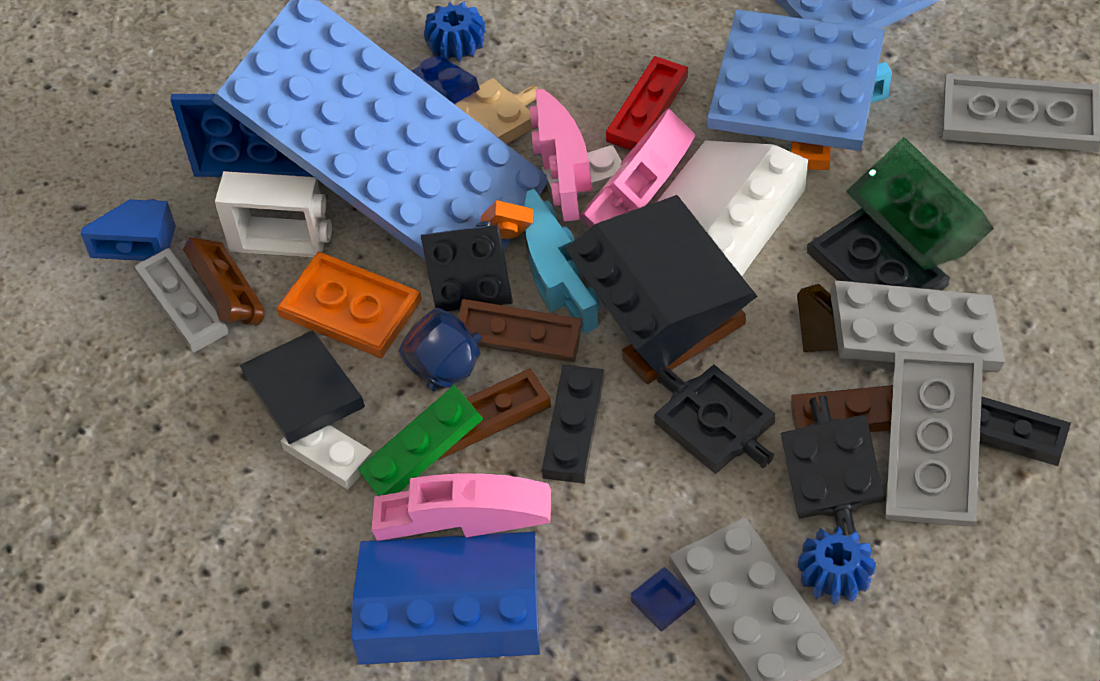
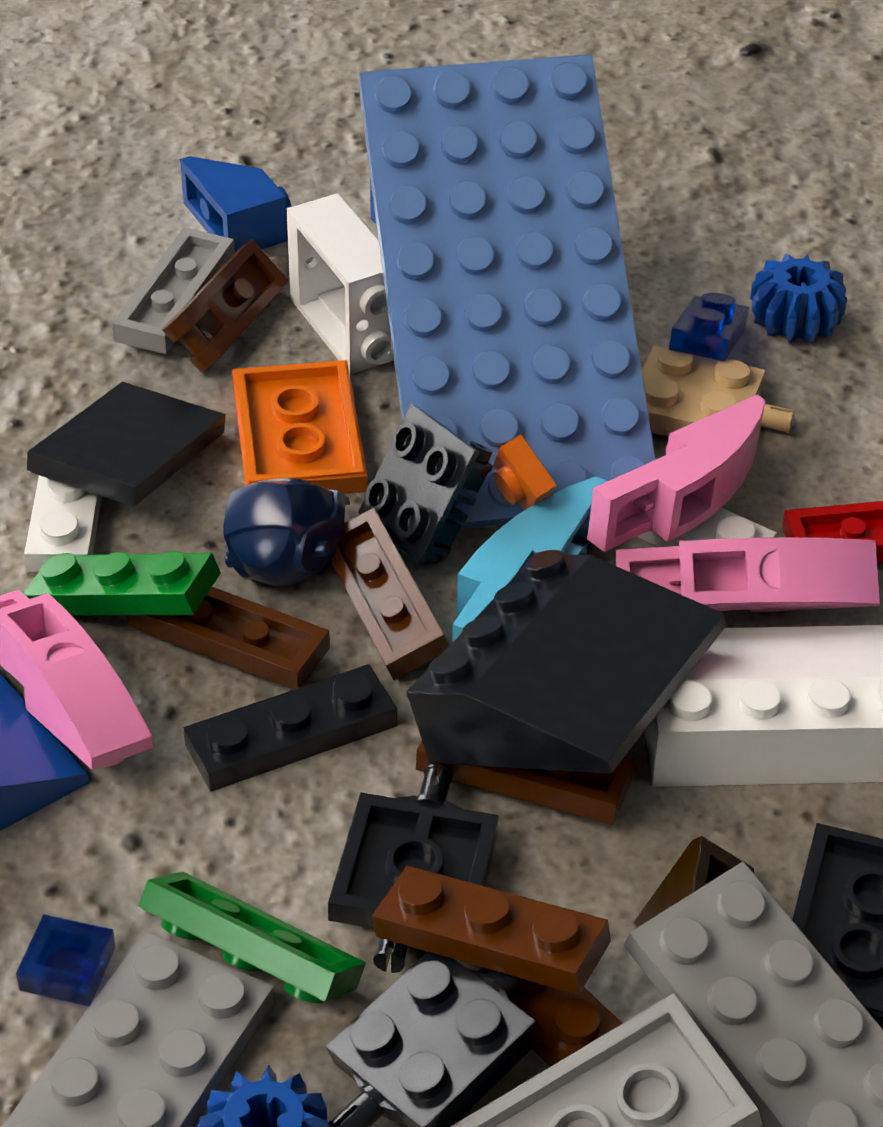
camera: 50 degrees right, 10 degrees down
(709, 509) = (251, 937): none -> green plate
(799, 401) = (492, 929): none -> reddish brown plate

